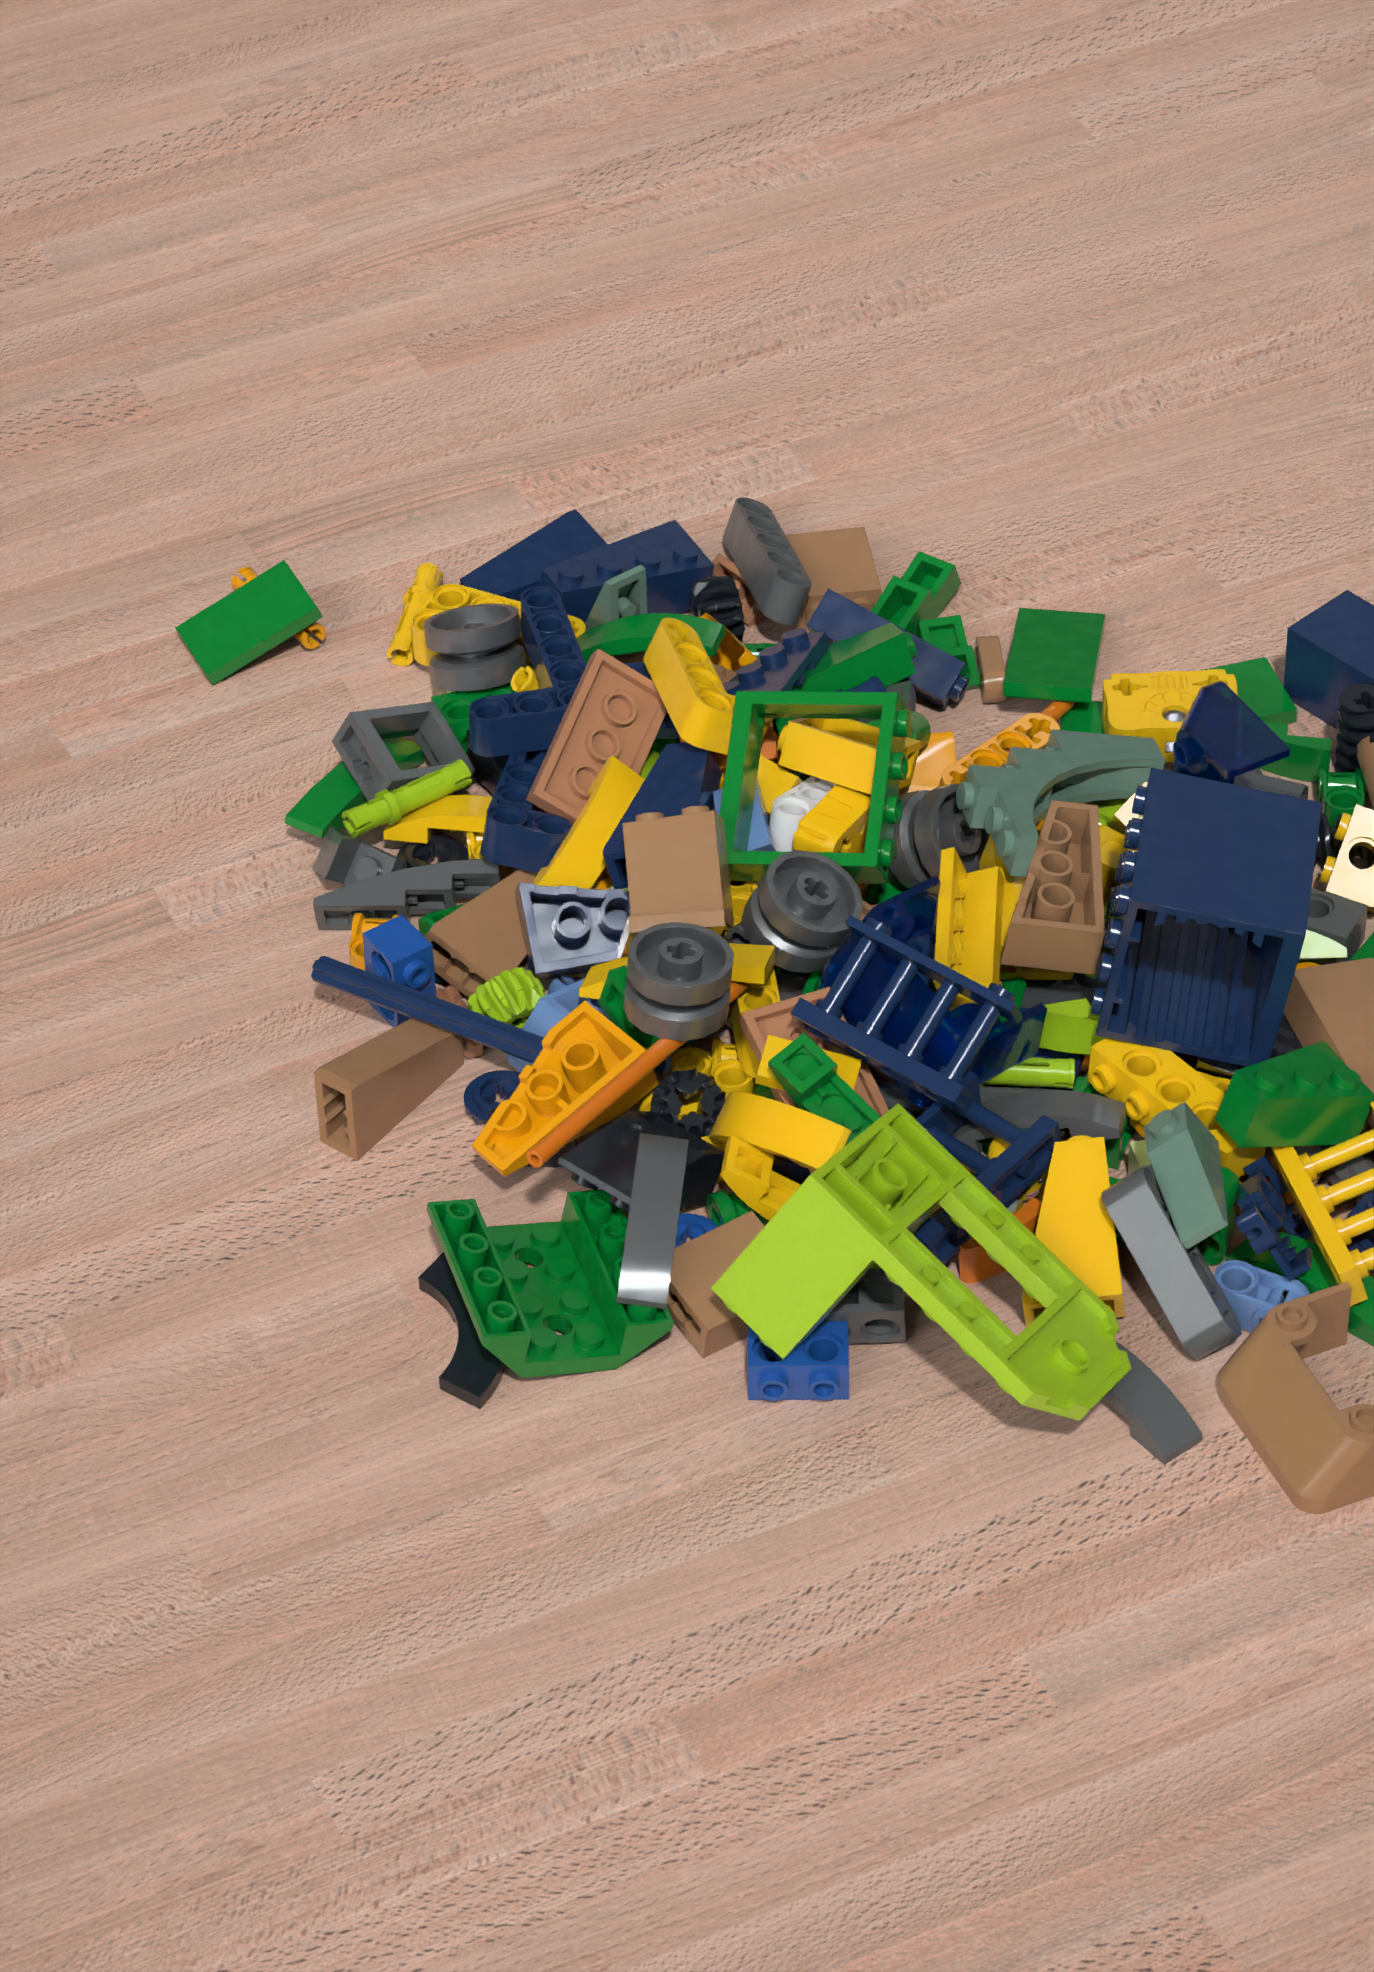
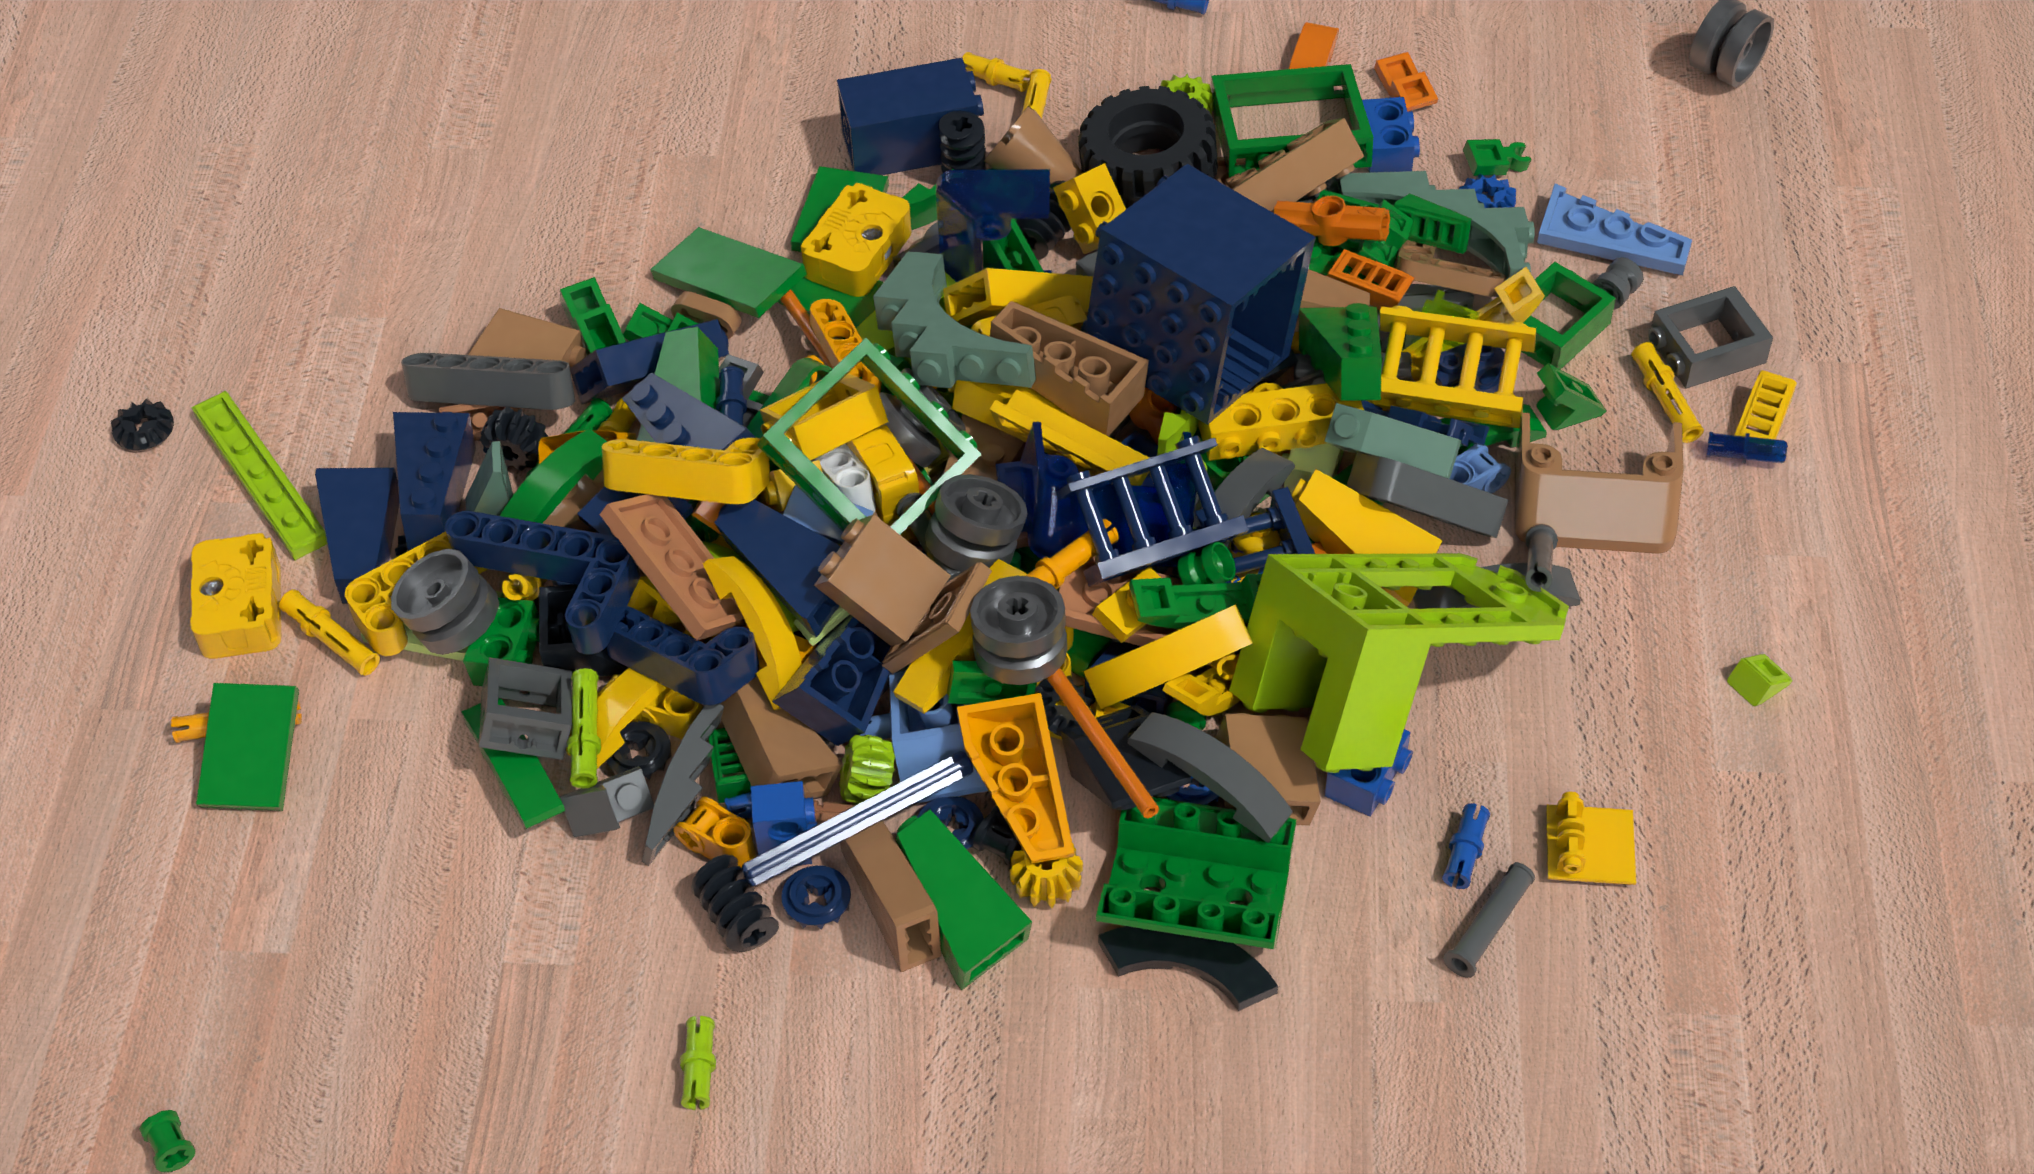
camera: 60 degrees left, 10 degrees up
(125, 1046) = (698, 1062): none -> lime pin
(292, 995) = (733, 904): none -> black piece
(348, 1034) = (819, 881): none -> dark blue gear
(397, 536) = (235, 596): none -> yellow axle
(407, 1130) = (974, 913): none -> green slope
(489, 1188) = (1046, 879): none -> yellow gear
(546, 399) = (150, 434): none -> black gear
(569, 480) = (260, 475): none -> lime tile
(675, 1527) = (1489, 920): none -> dark grey pin
(756, 1477) = (1466, 846): none -> blue pin
(790, 985) = (1070, 558): none -> light orange pin
(833, 1572) = (1590, 842): none -> yellow hinge
(908, 1095) = (1208, 567): none -> green wheel
(1163, 1380) = (1541, 542): none -> dark grey pin
(1175, 1643) = (1758, 679): none -> lime slope

